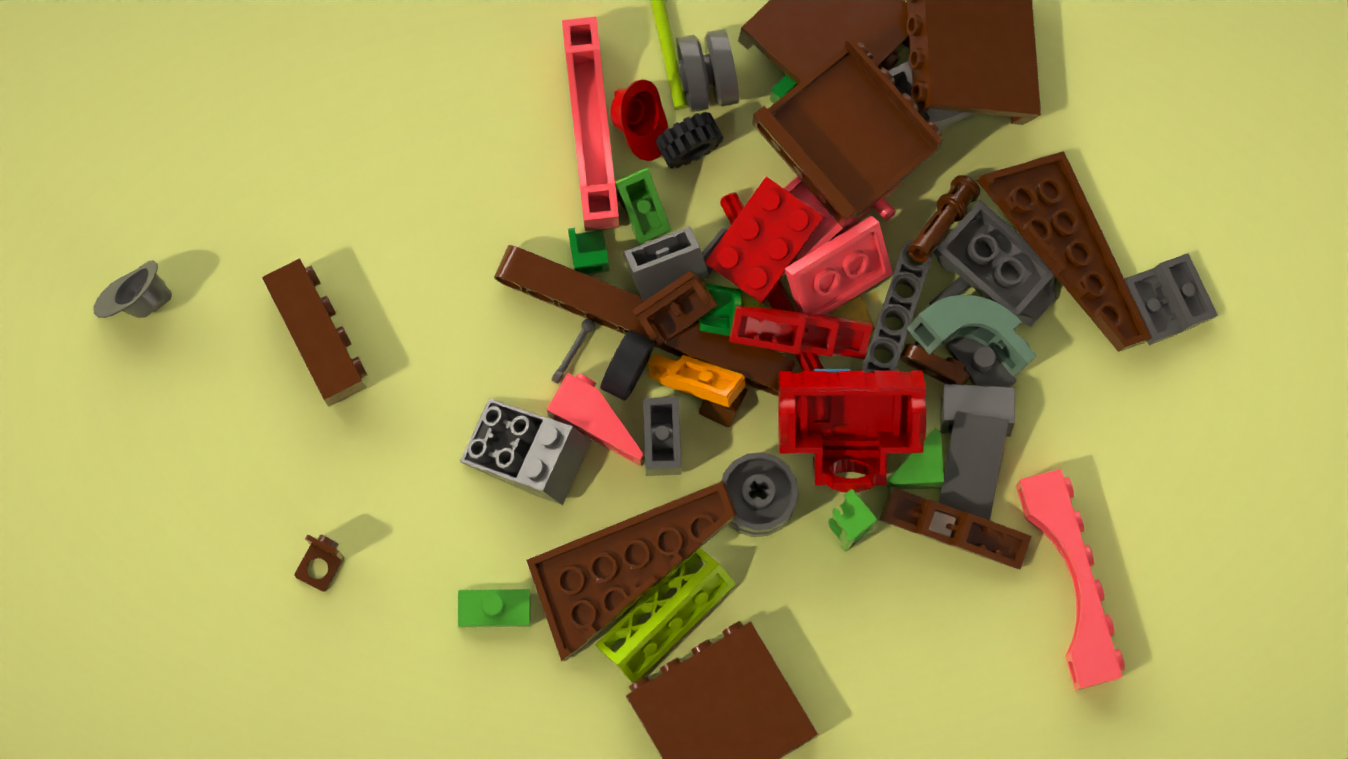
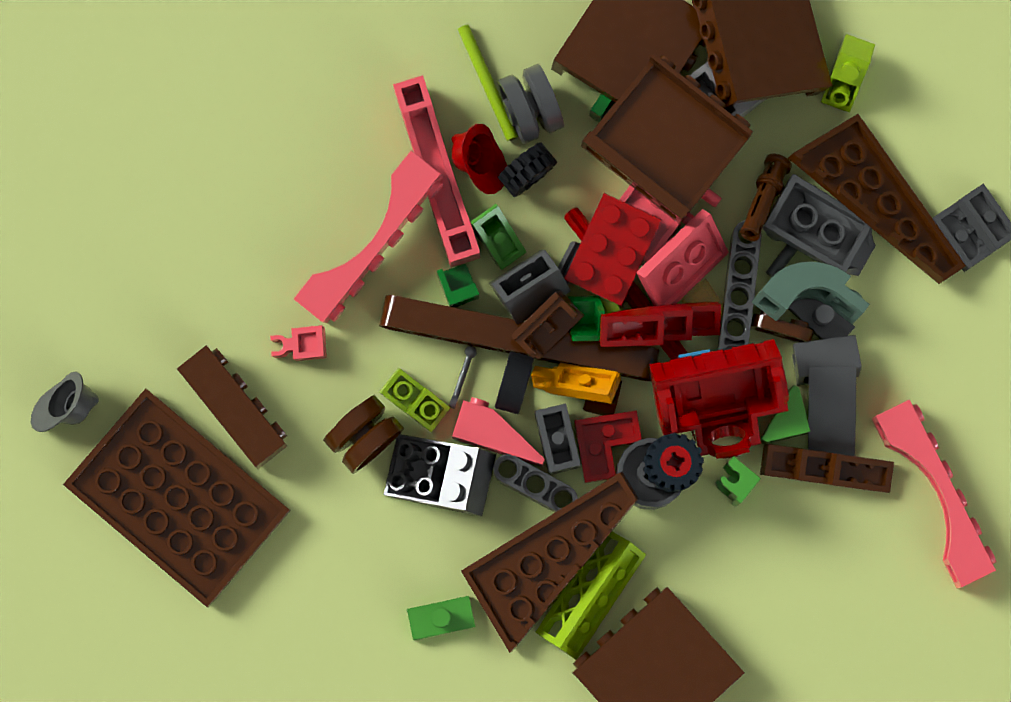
camera: 15 degrees left, 5 degrees up
(233, 419) = (176, 497): none -> reddish brown plate
(324, 549) = (284, 597): reddish brown bracket -> none
(409, 280) = (306, 343): none -> coral plate
(450, 388) = (360, 430): none -> reddish brown wheel
(515, 365) = (414, 400): none -> lime slope
(557, 134) = (410, 186): none -> coral arch
(620, 466) = (526, 471): none -> dark grey beam
(707, 444) = (597, 437): none -> red plate
(775, 492) = (662, 466): none -> black wheel
(1061, 106) = (848, 72): none -> lime slope

